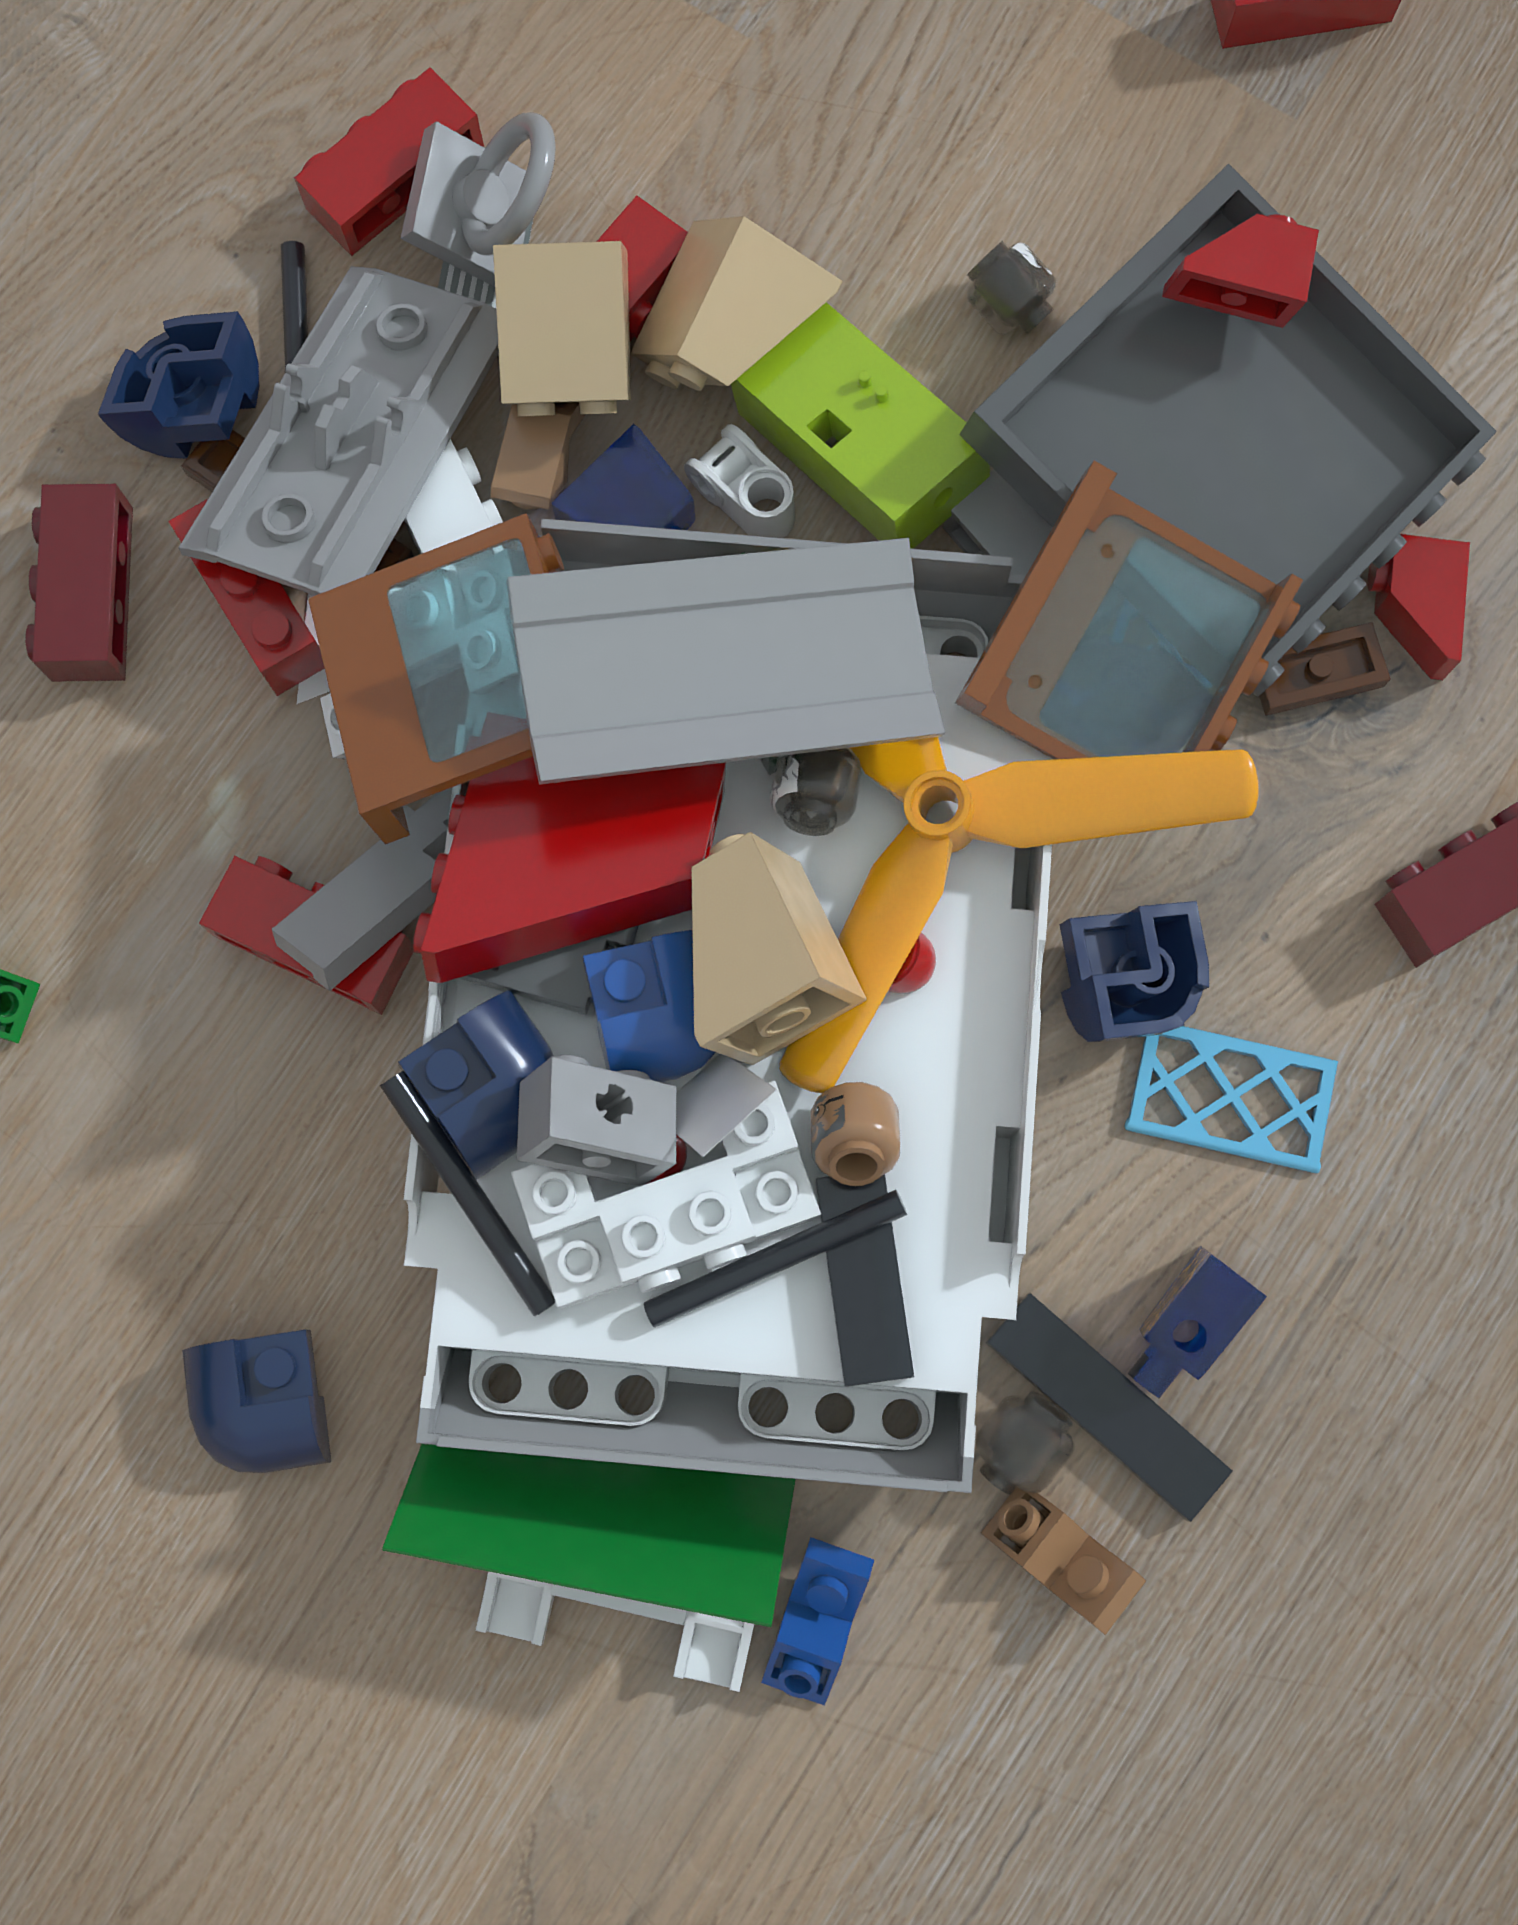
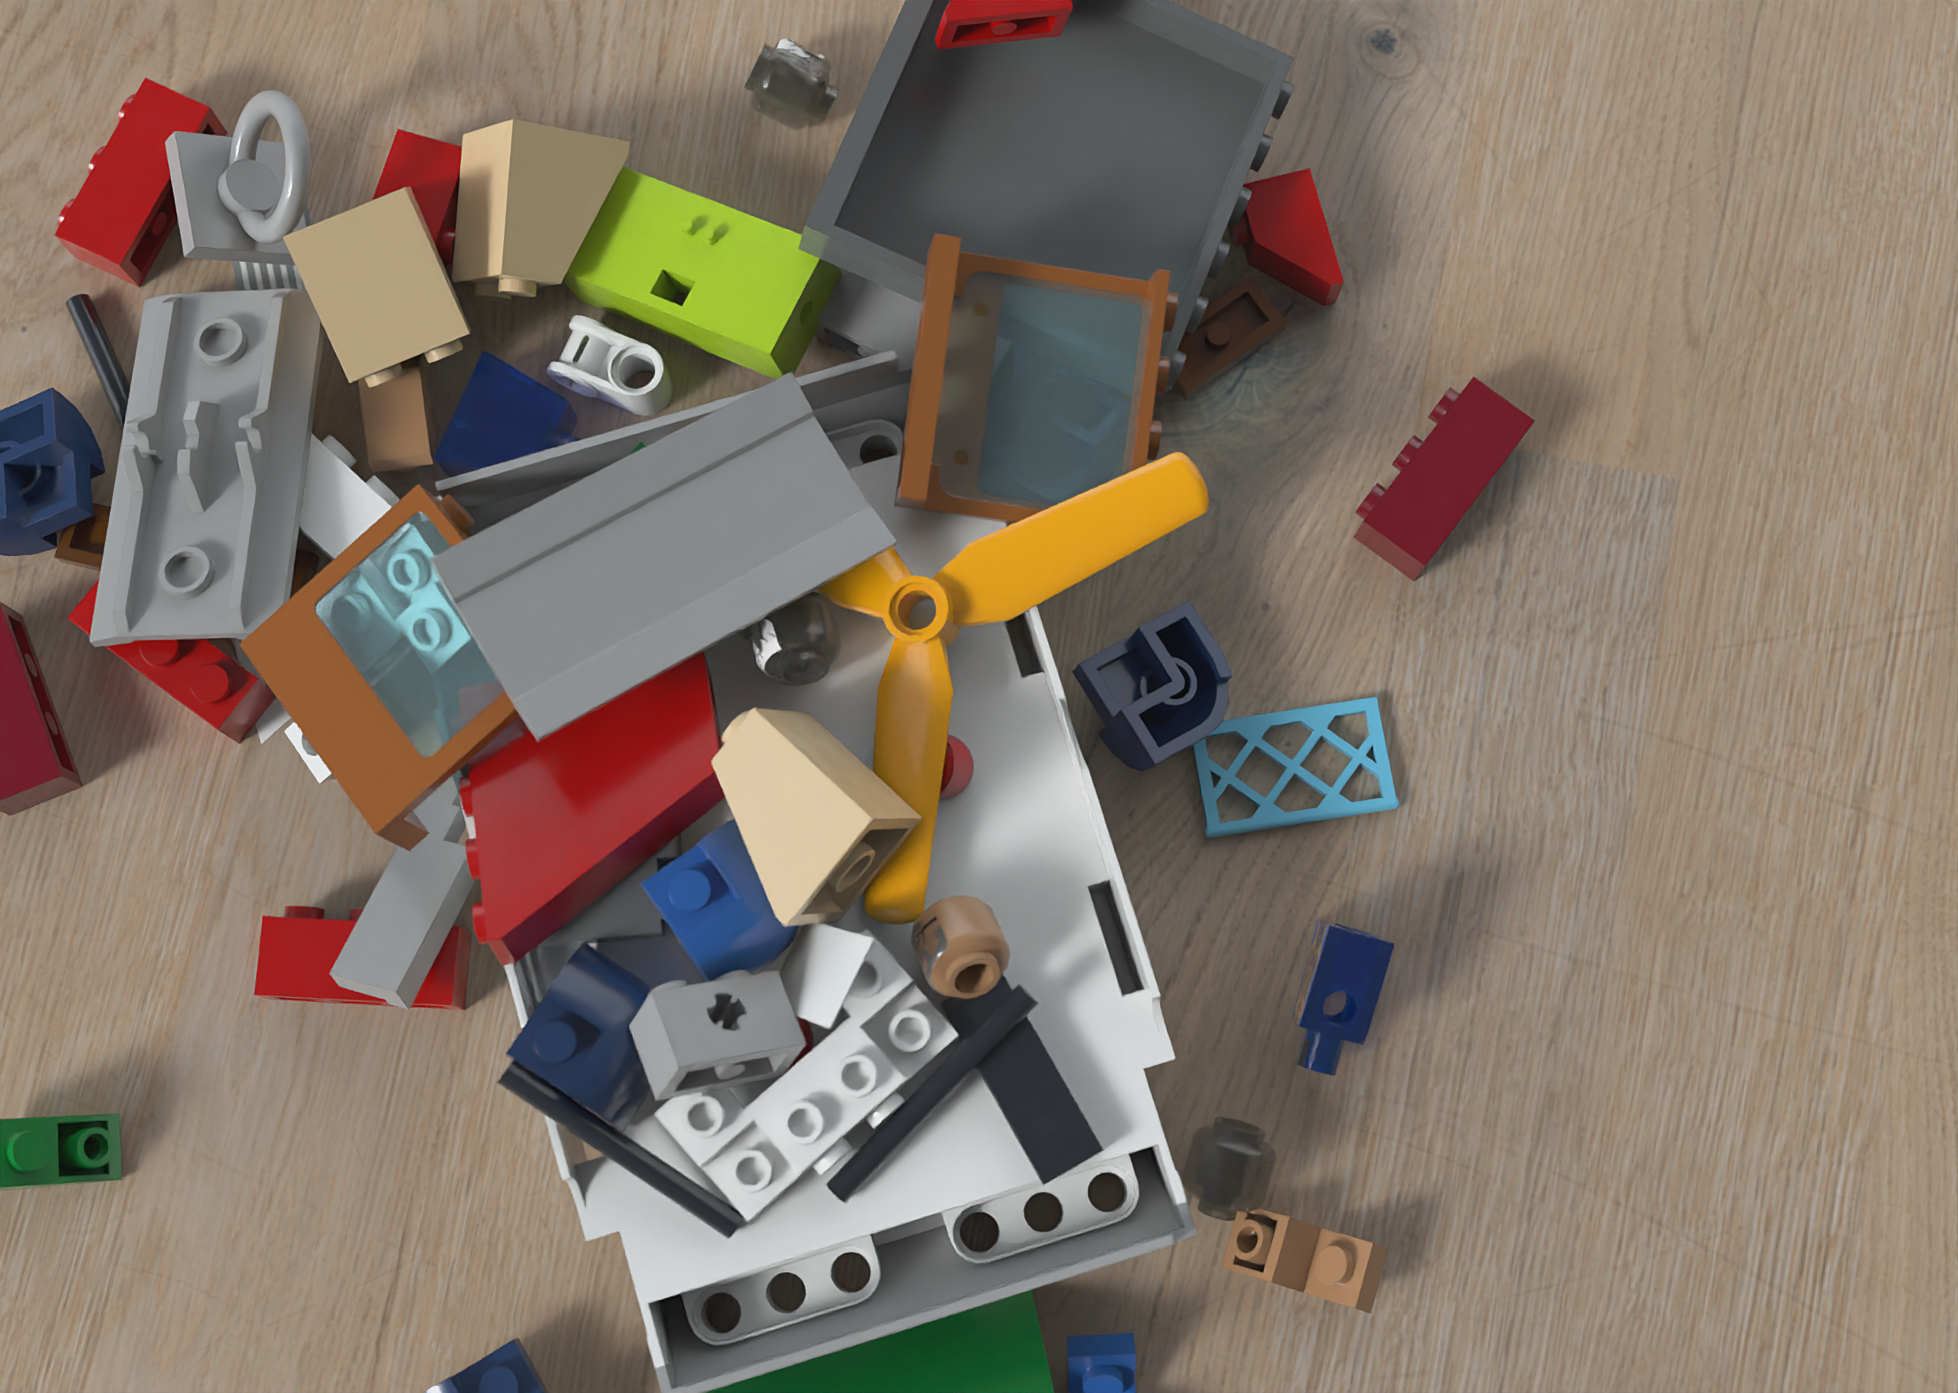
camera: 25 degrees left, 0 degrees up
(1109, 1407) = (1293, 1102): black tile -> none

